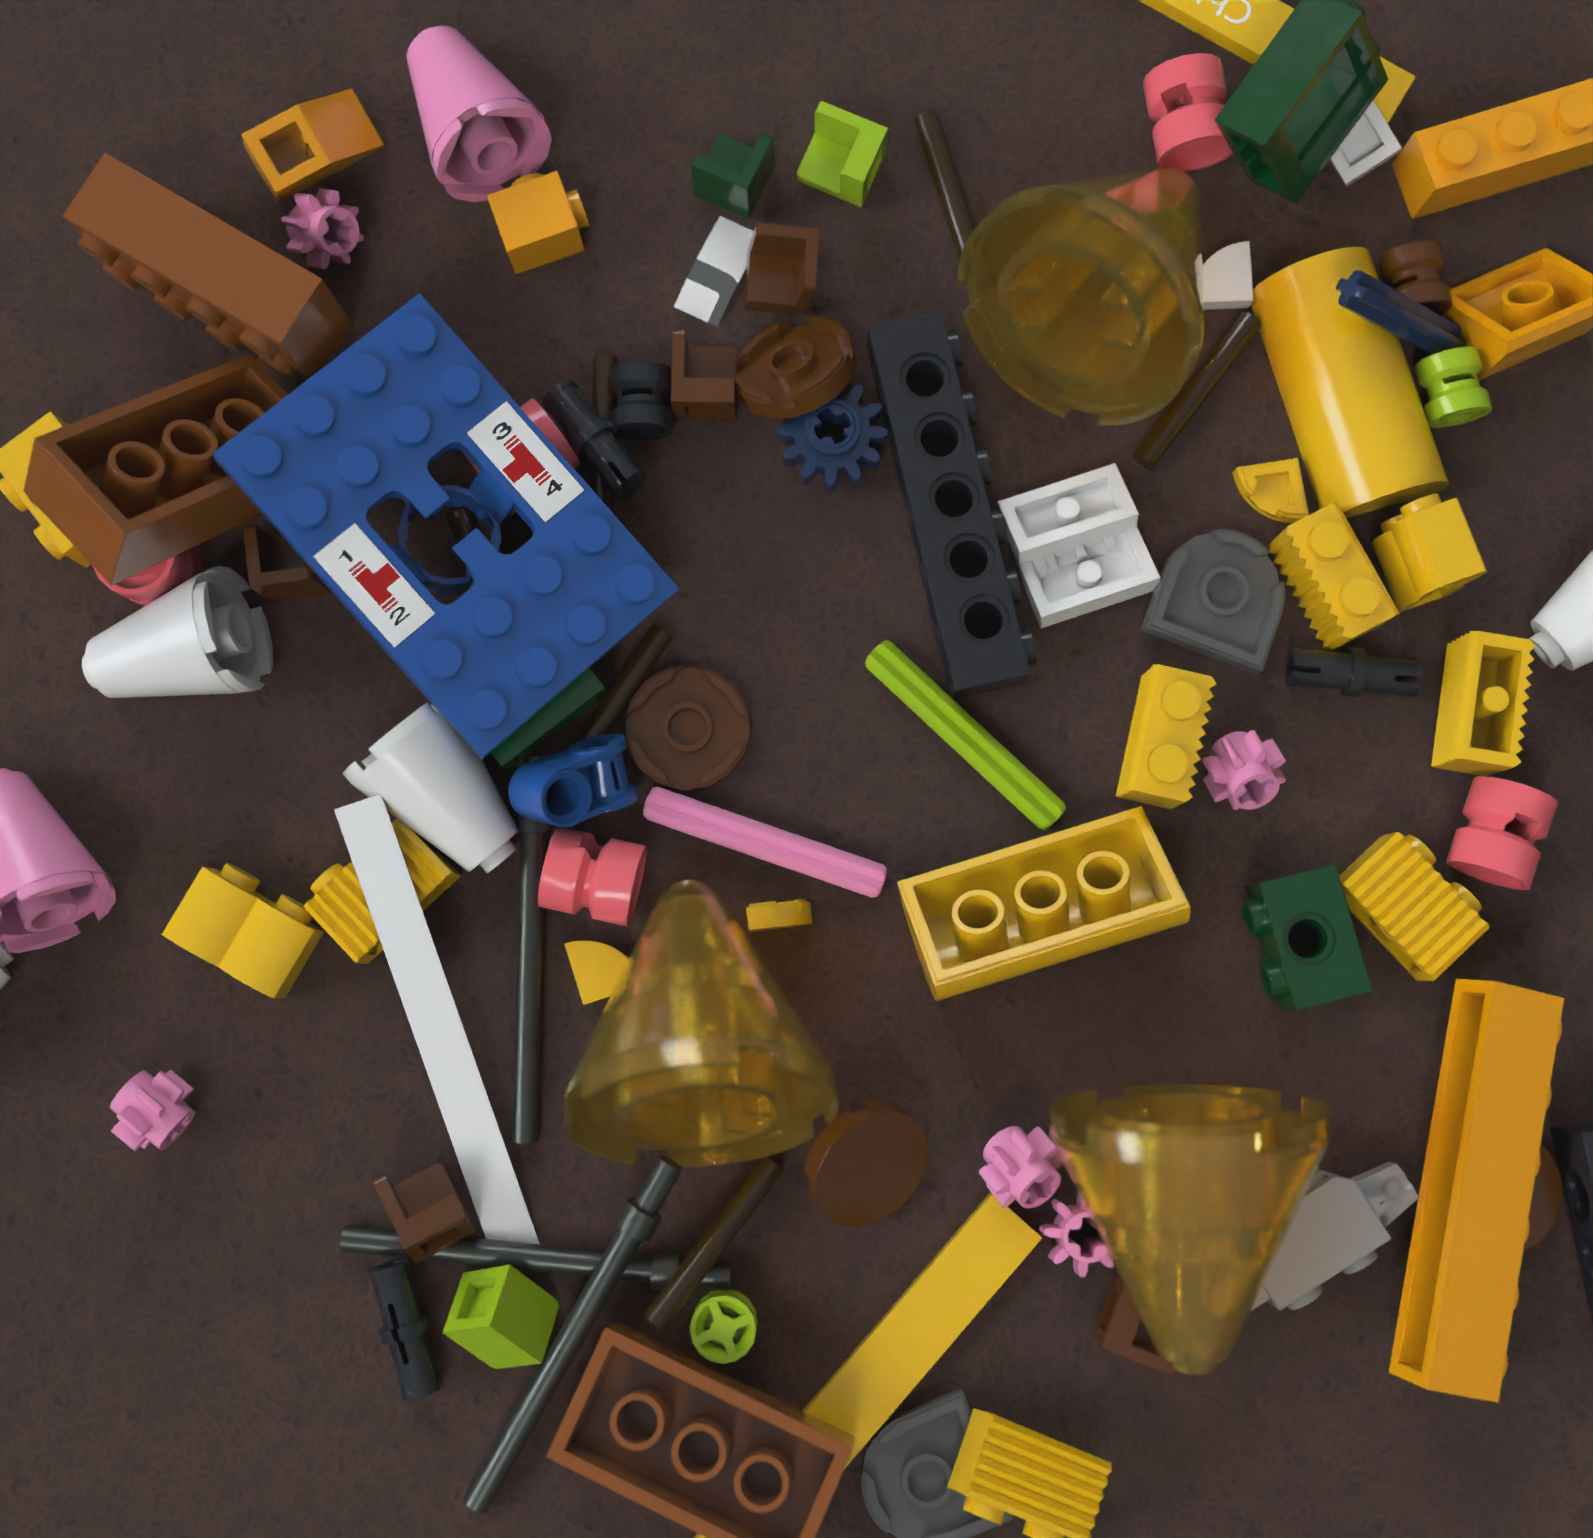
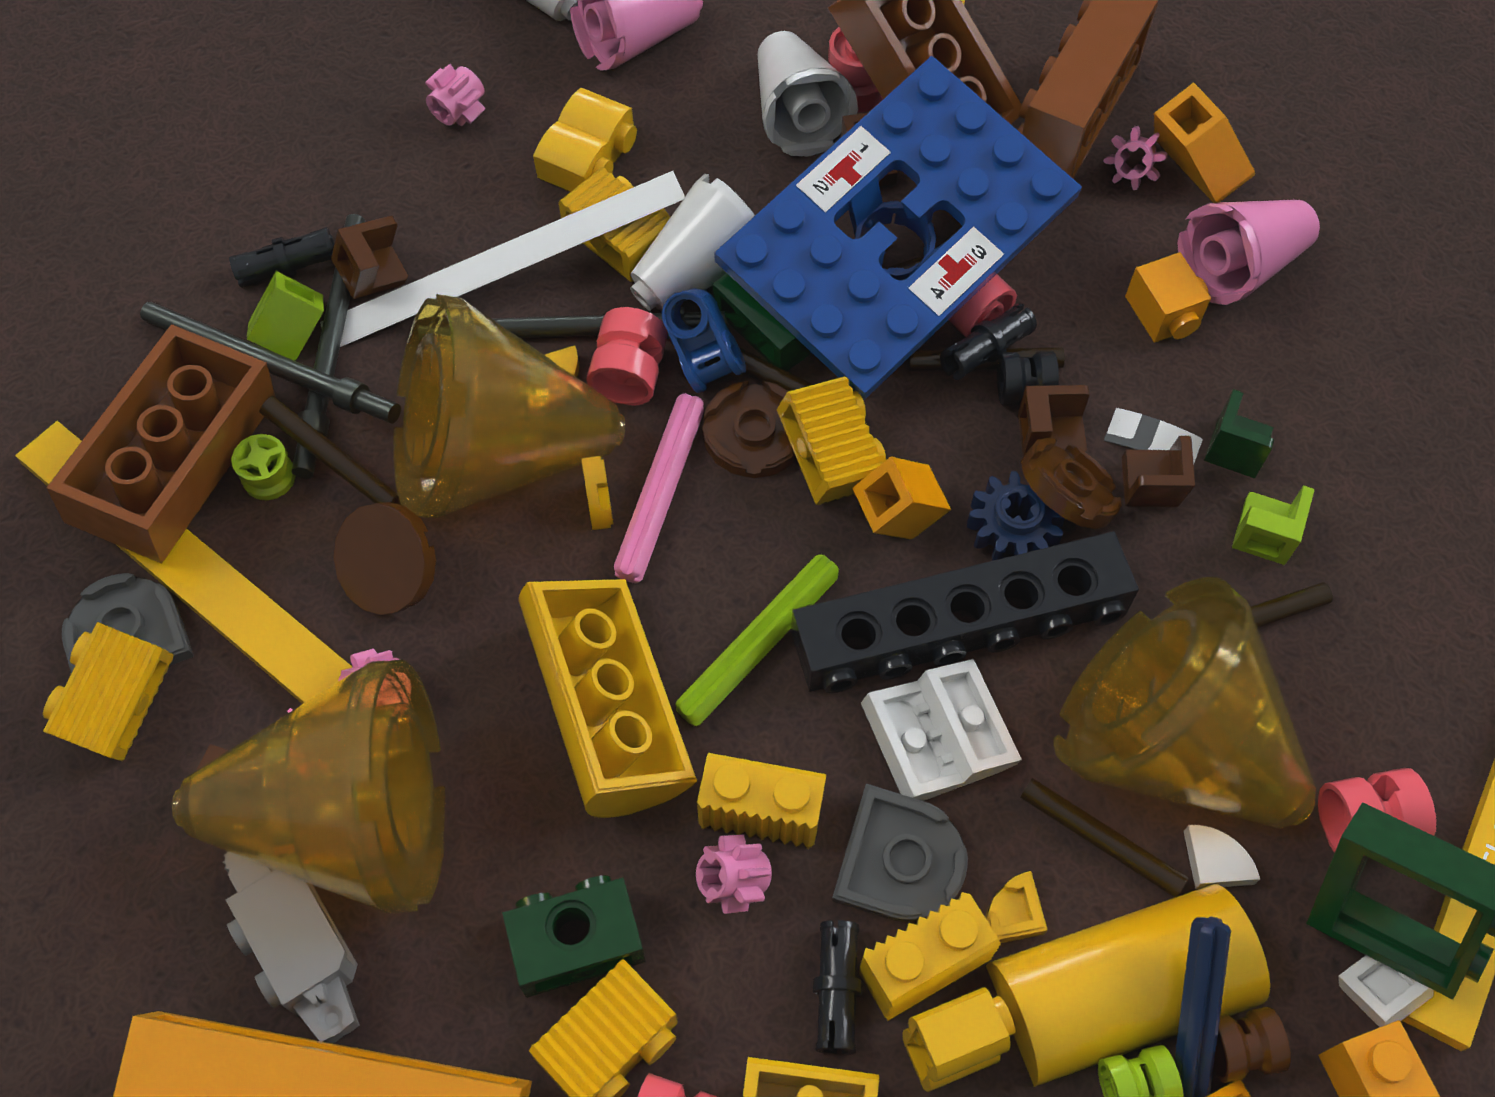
camera: 85 degrees right, 20 degrees down
(726, 633) = (830, 437): none -> yellow brick
(810, 560) = (901, 498): none -> light orange brick

